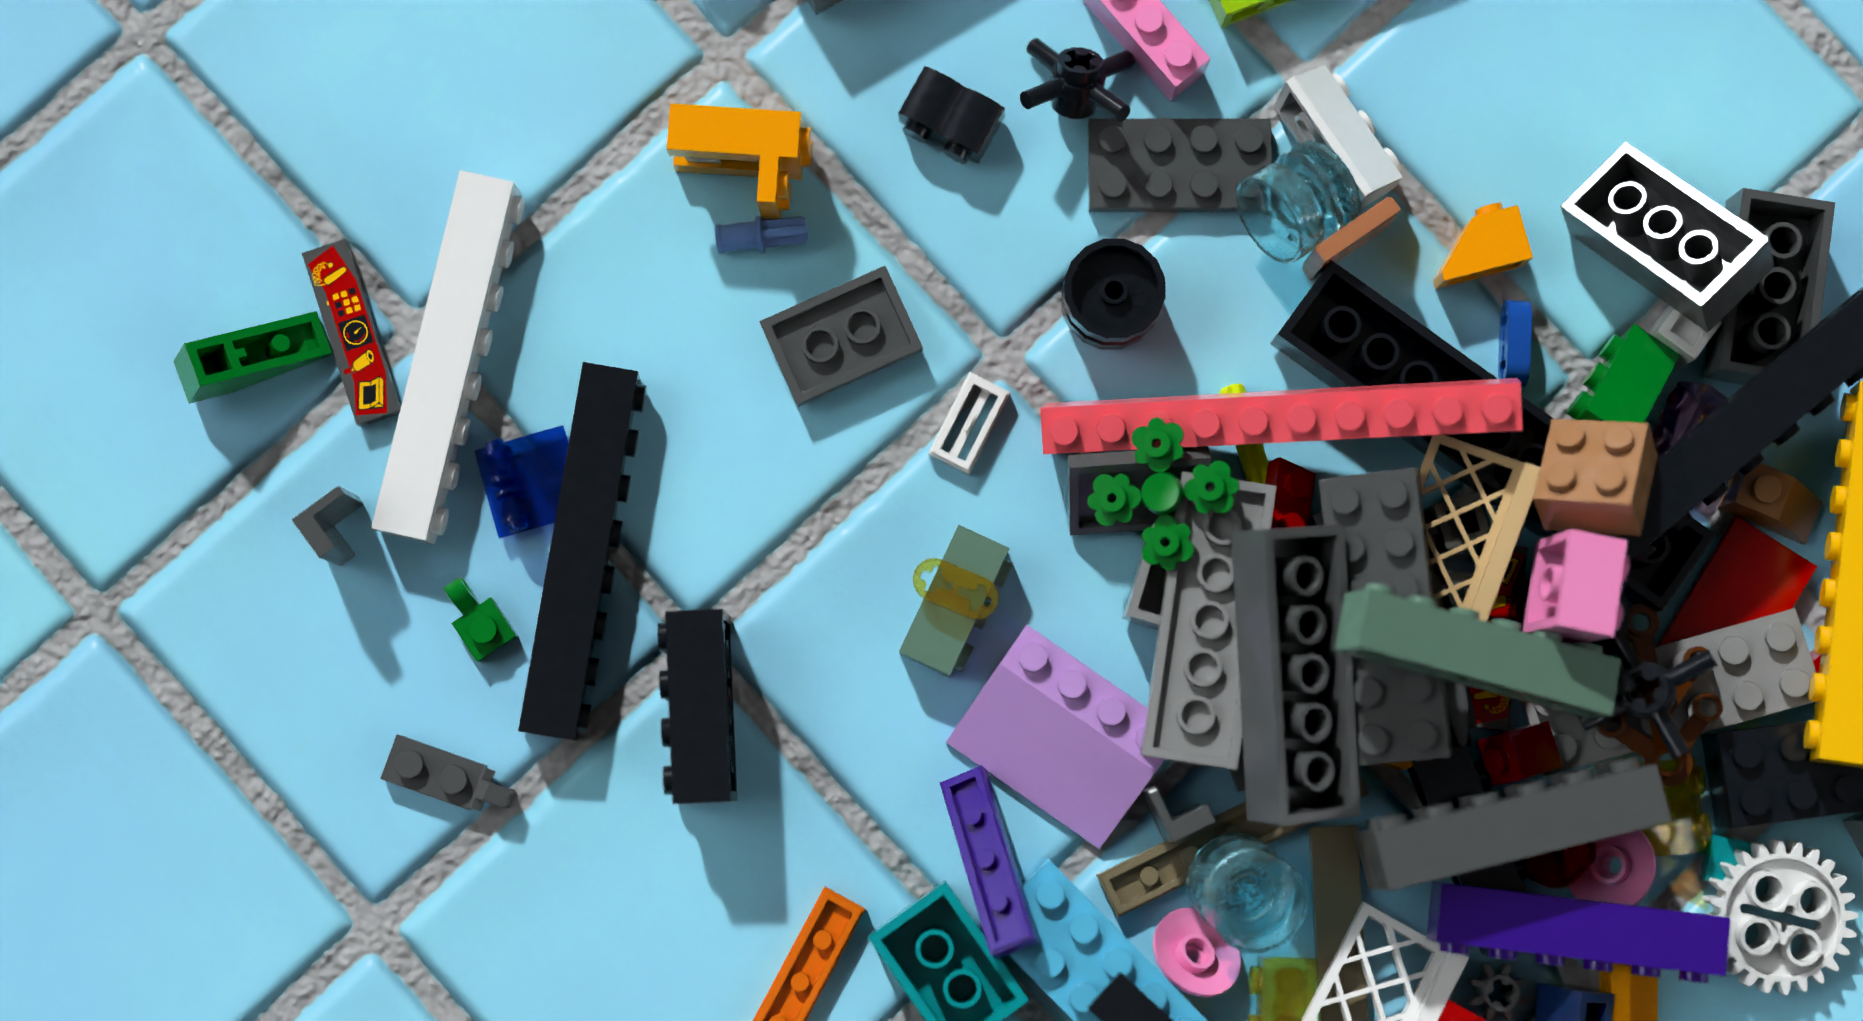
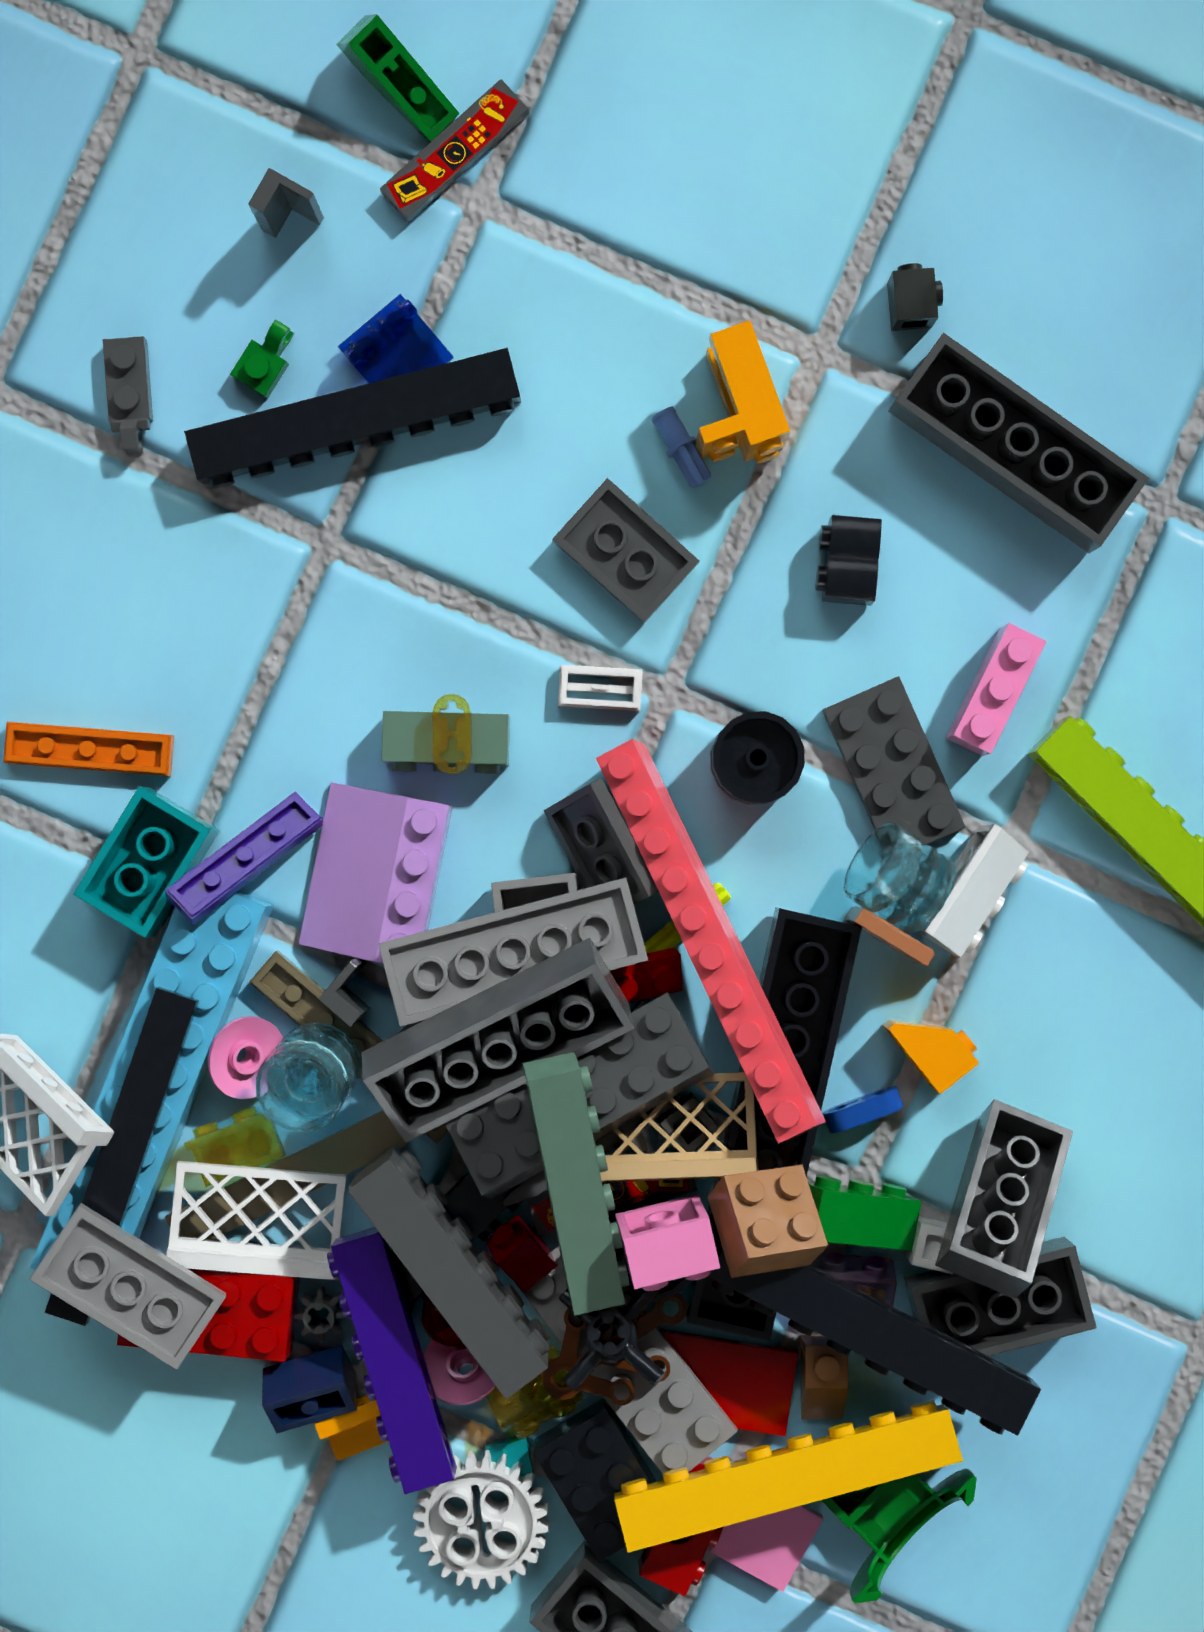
camera: 65 degrees right, 5 degrees up
(448, 357) = (466, 237): white brick -> none
(700, 706) = (266, 569): black brick -> none
(1077, 81) = (924, 651): black bar -> none
(1163, 493) = (600, 869): green plant -> none

